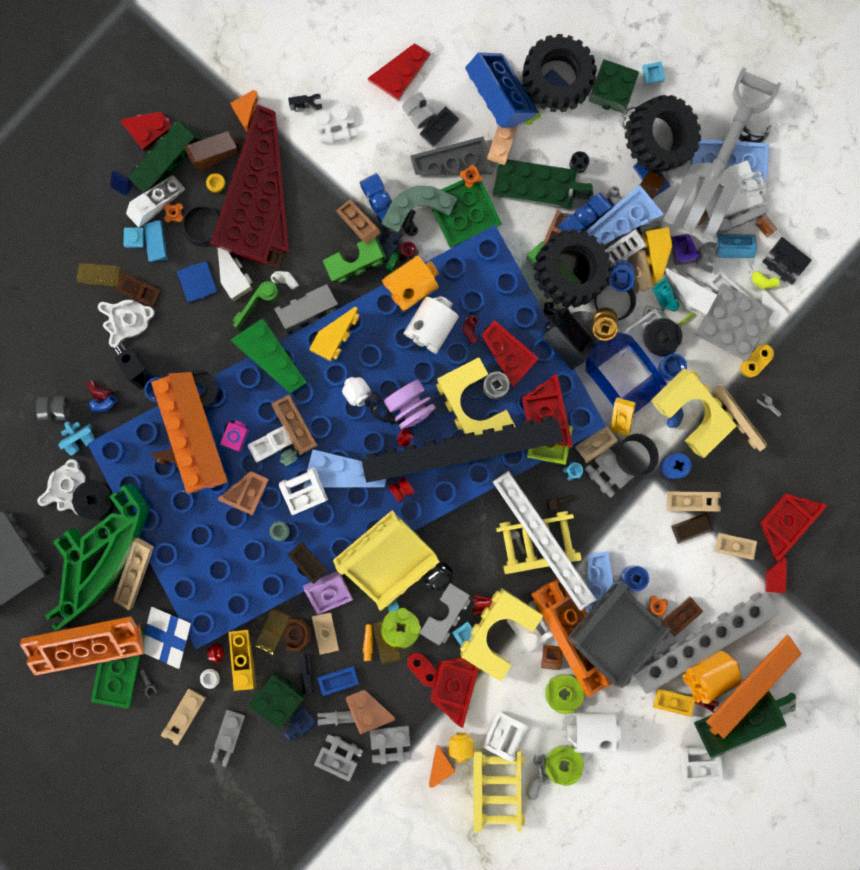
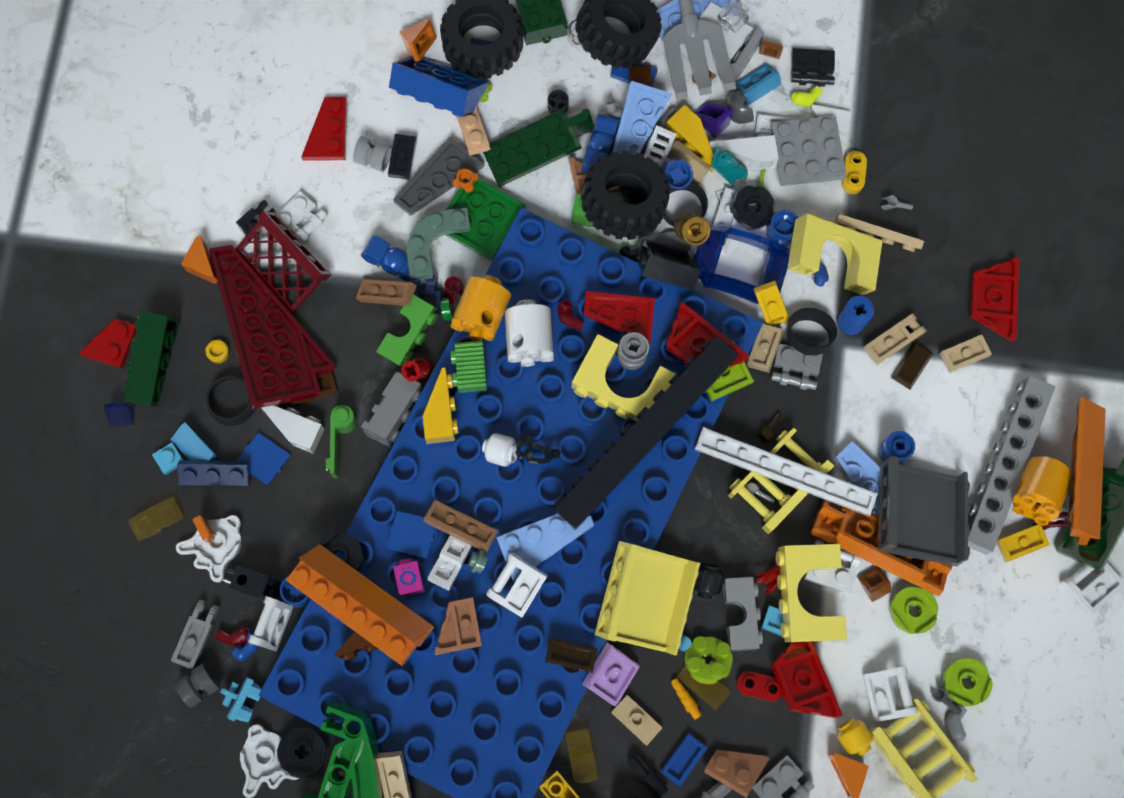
camera: 35 degrees left, 10 degrees down
(72, 373) = (194, 636): none -> light grey hinge
(124, 305) = (204, 529): none -> orange tile
(126, 401) = (271, 624): none -> white plate
(137, 290) = (209, 506): reddish brown slope -> none
(153, 201) = (165, 409): white slope -> none
(157, 269) = (213, 473): none -> dark blue plate
(177, 217) = (191, 413): orange plate -> none
(212, 151) = (193, 321): reddish brown slope -> none
(256, 407) = (410, 535): none -> blue piece
(266, 351) = (380, 472): green wing -> none
(279, 531) = (520, 643): sand green plate -> none
(284, 277) = (349, 395): white arm -> none
(297, 634) = (610, 740): reddish brown hair -> none
(315, 142) = (297, 251): none -> dark red fence
(342, 292) = (416, 368): none -> red hinge
(376, 318) = (469, 367): none -> bright green brick
(401, 489) = (613, 515): red wheel -> none
(404, 437) = (580, 462): red plate -> none
(408, 225) = (437, 266): black arm -> none
(409, 404) = (563, 425): lavender wheel -> none
(512, 44) = (418, 39): none -> orange slope
(575, 470) = (764, 385): medium azure piece -> none
(594, 732) = (973, 626): white cylinder -> none
(662, 606) = (940, 456): orange plate -> none
(682, 616) = (967, 454): reddish brown plate -> none
(776, 577) = (1024, 357): red tile -> none

